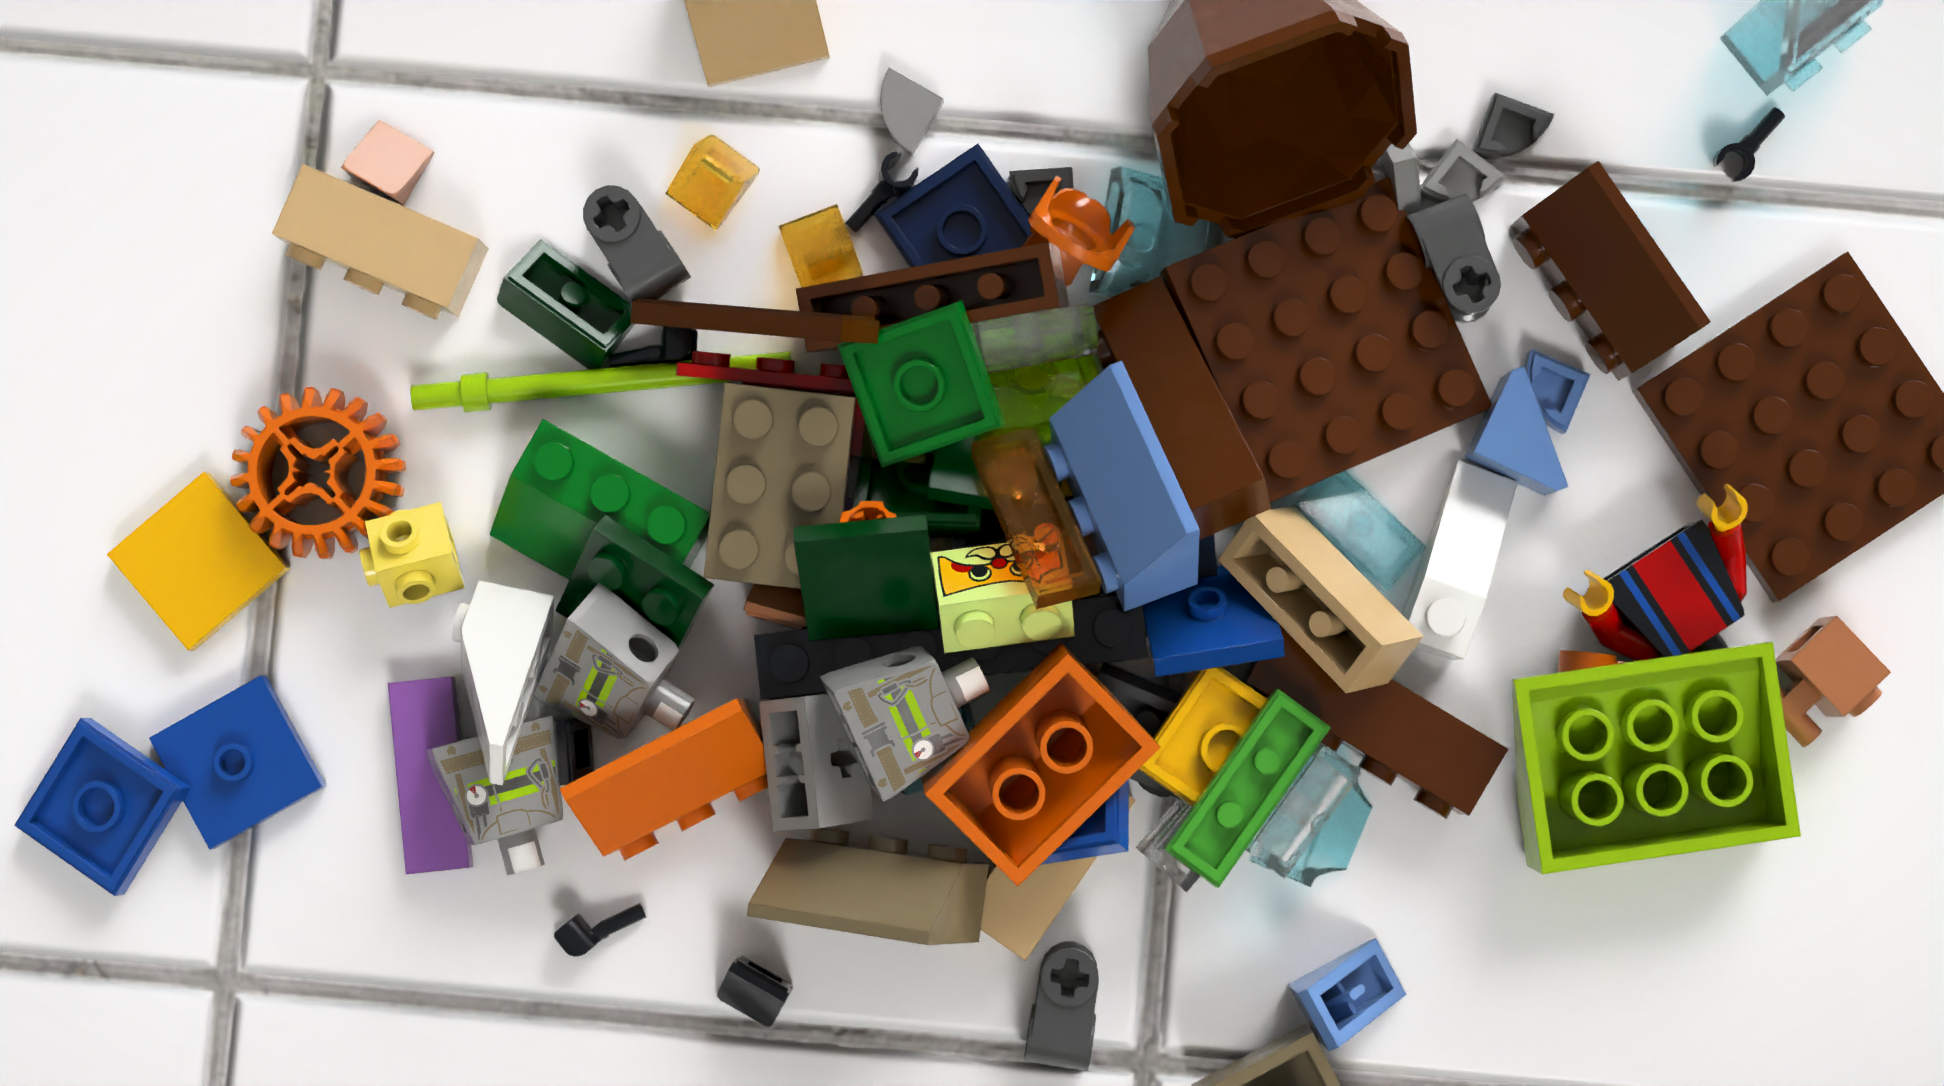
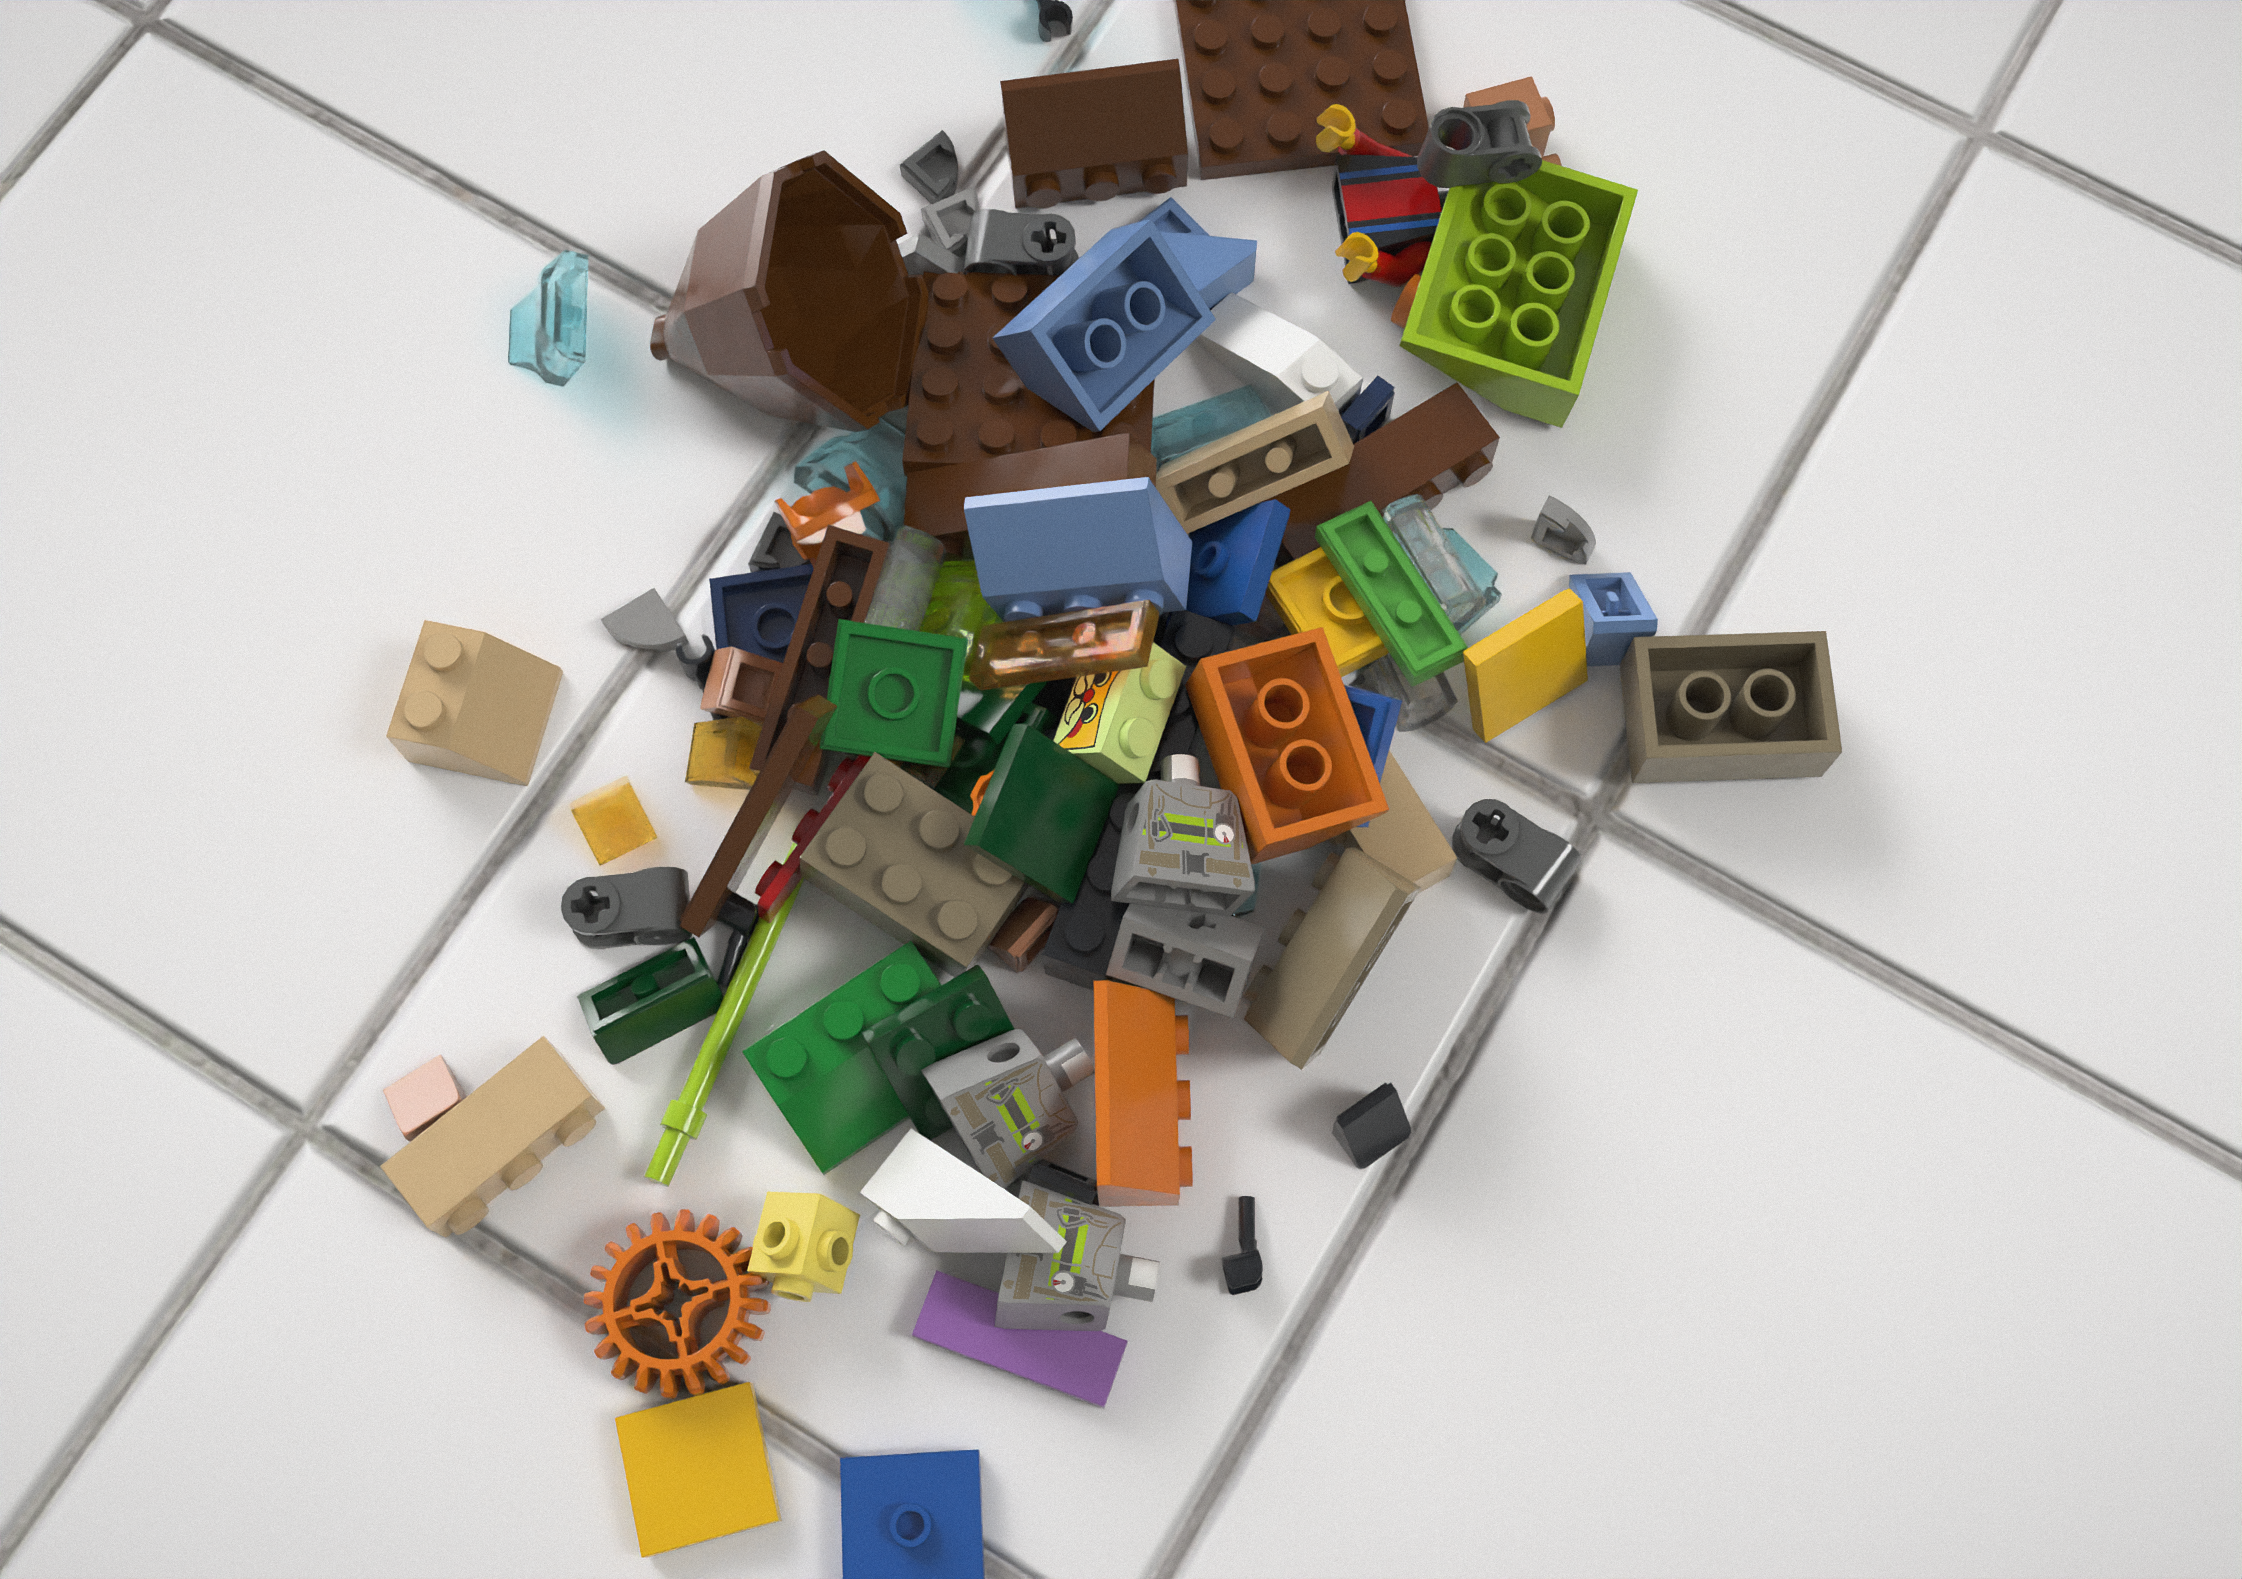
camera: 65 degrees left, 15 degrees down
(885, 232) = (740, 684): none -> nougat slope
(1245, 942) = (1526, 665): none -> yellow tile
(1395, 389) = (1106, 326): none -> medium blue slope
(1411, 915) = (1564, 531): none -> light grey tile
(1439, 675) = (1369, 410): none -> dark blue tile
(1766, 673) = (1487, 142): none -> dark grey piece

